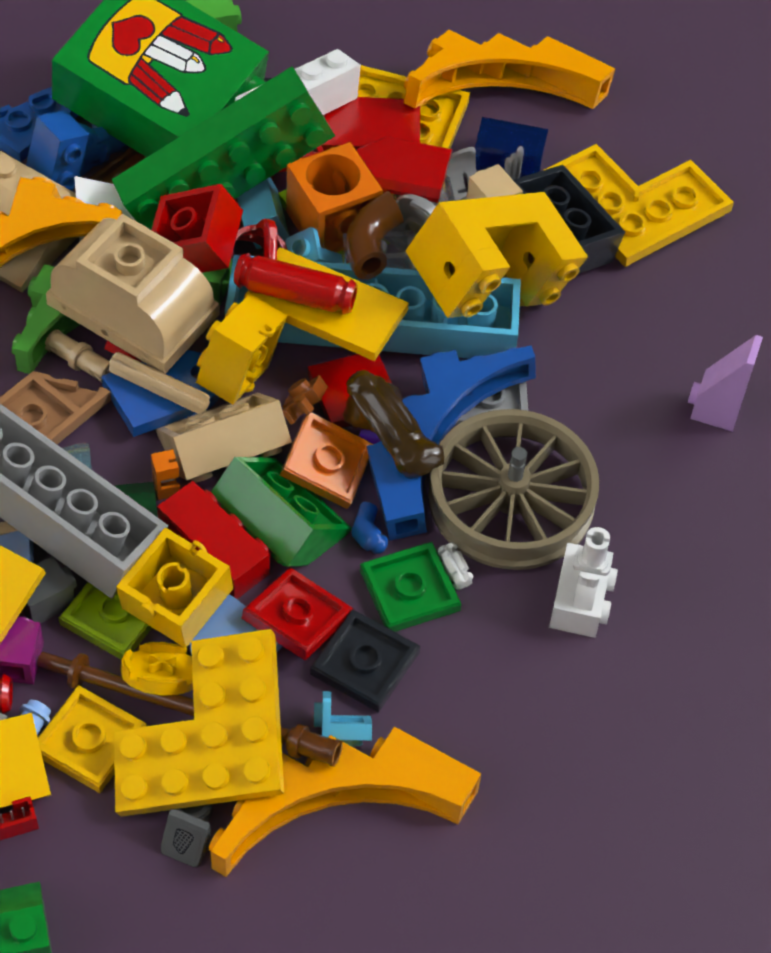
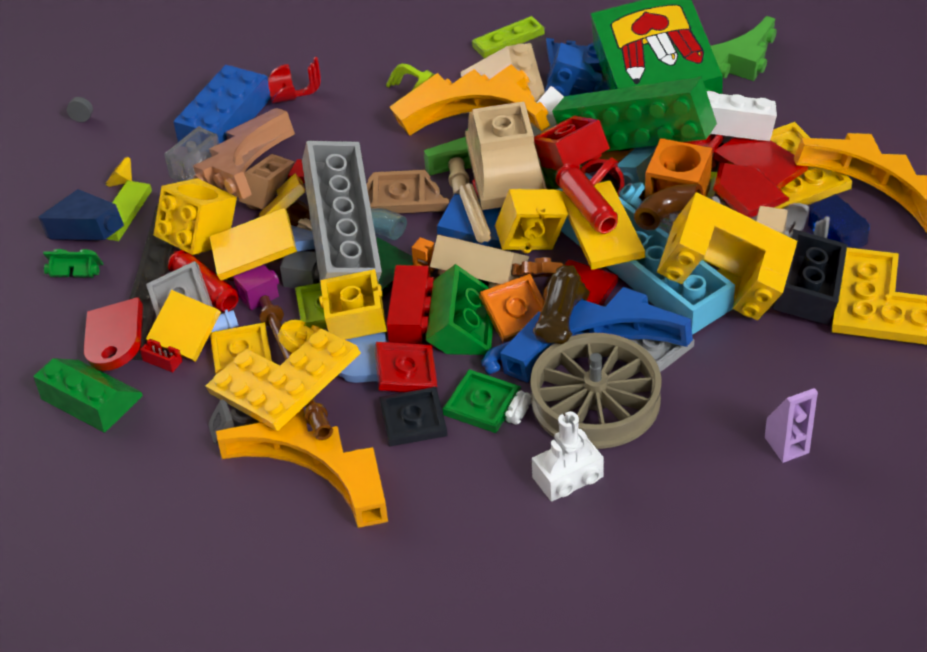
camera: 55 degrees right, 10 degrees down
(347, 728) = (350, 427): medium azure bracket -> none

